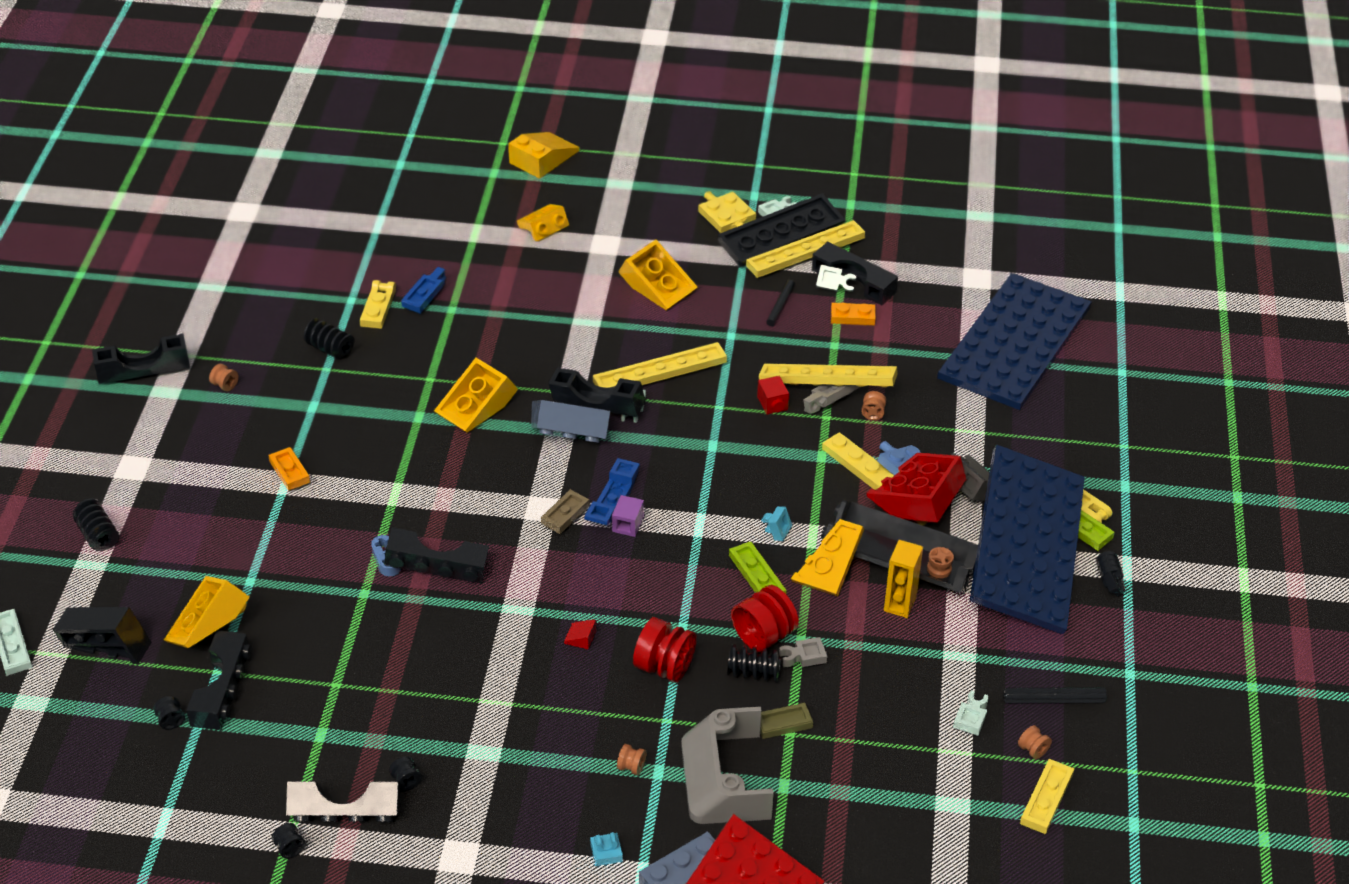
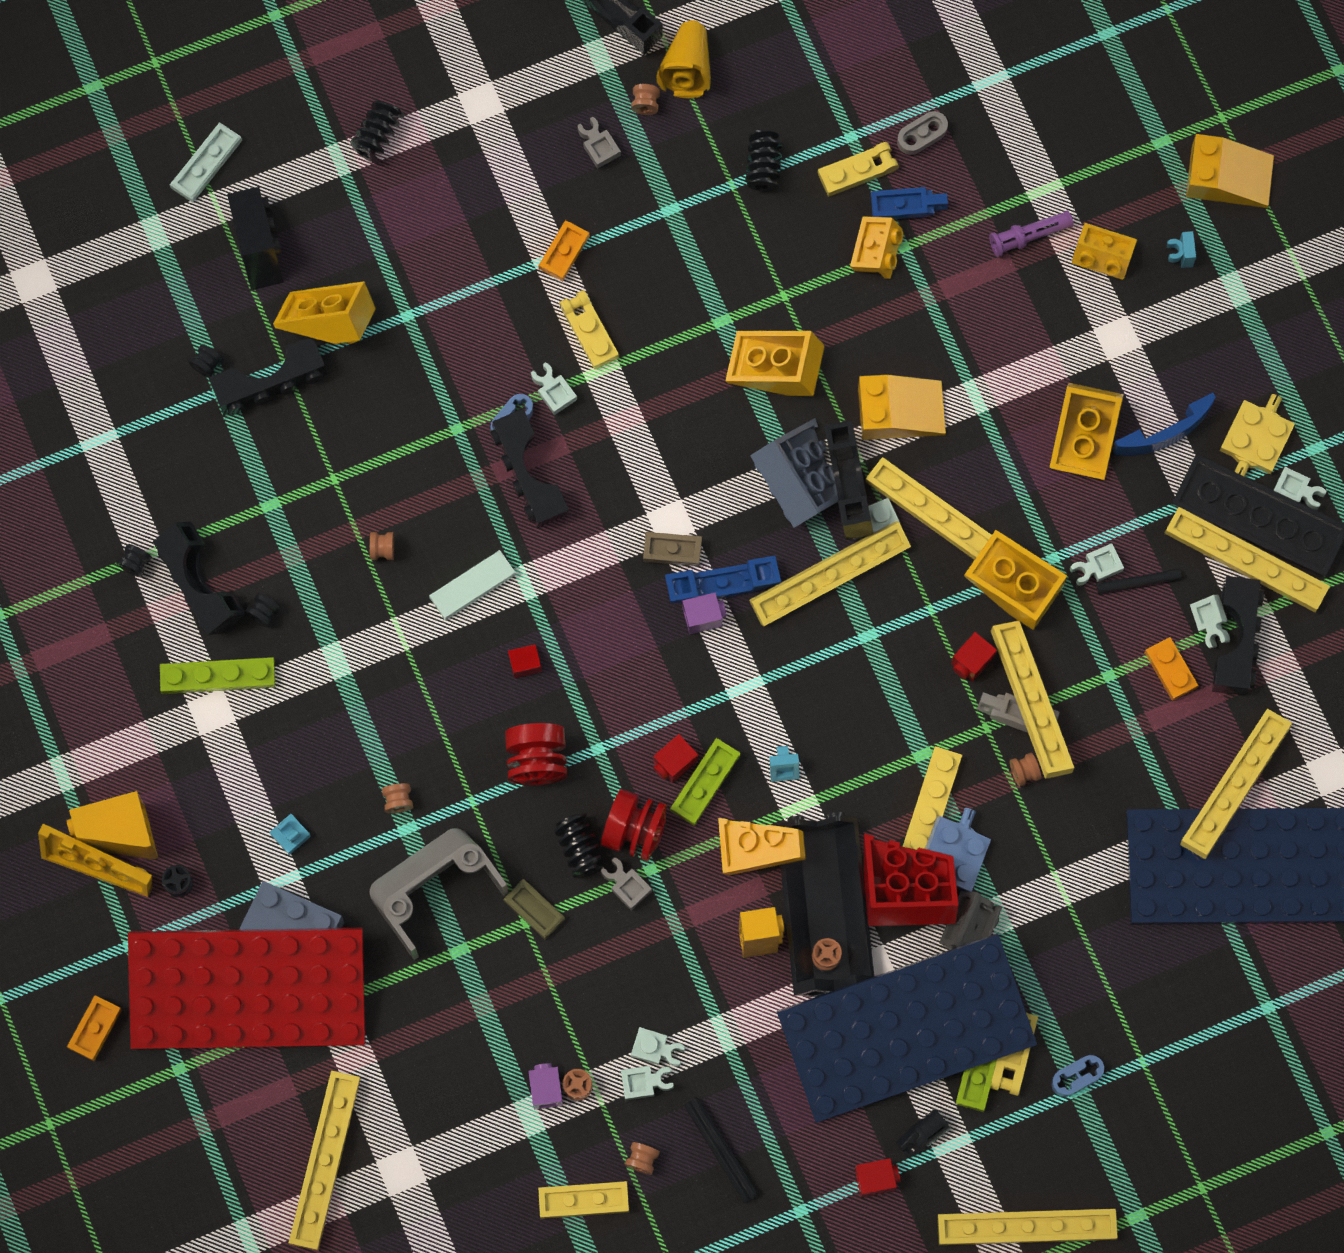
camera: 60 degrees right, 30 degrees up
(222, 342) = (686, 62): none -> yellow cone
(229, 416) = (599, 145): none -> light grey plate
(359, 484) = (589, 330): none -> light yellow plate
(384, 263) = (921, 134): none -> light grey plate
(386, 520) = (555, 392): none -> light aqua plate
(418, 673) = (382, 546): none -> nougat wheel
(432, 835) = (217, 675): none -> lime plate
(440, 316) = (877, 246): none -> yellow bracket
(495, 638) = (472, 585): none -> light aqua tile
(504, 232) = (1018, 237): none -> medium lavender pin
(561, 351) = (900, 407): none -> yellow slope
(576, 186) = (1185, 248): none -> medium azure tile
(653, 439) = (830, 573): none -> light yellow plate
(689, 256) = (1137, 444): none -> blue slope
(727, 579) = (674, 759): none -> red brick
(739, 345) = (1016, 579): none -> yellow slope
(755, 312) = (1100, 563): none -> light aqua plate
(938, 775) = (545, 1086): none -> medium lavender brick
(945, 699) = (652, 1046): none -> light aqua plate
(953, 751) = (574, 1080): none -> nougat wheel
(959, 311) = (1236, 784): none -> light yellow plate
(1120, 478) = (1074, 1070): none -> medium blue beam
(1131, 613) = (876, 1177): none -> red brick
(1215, 551) = (1027, 1227): none -> light yellow plate

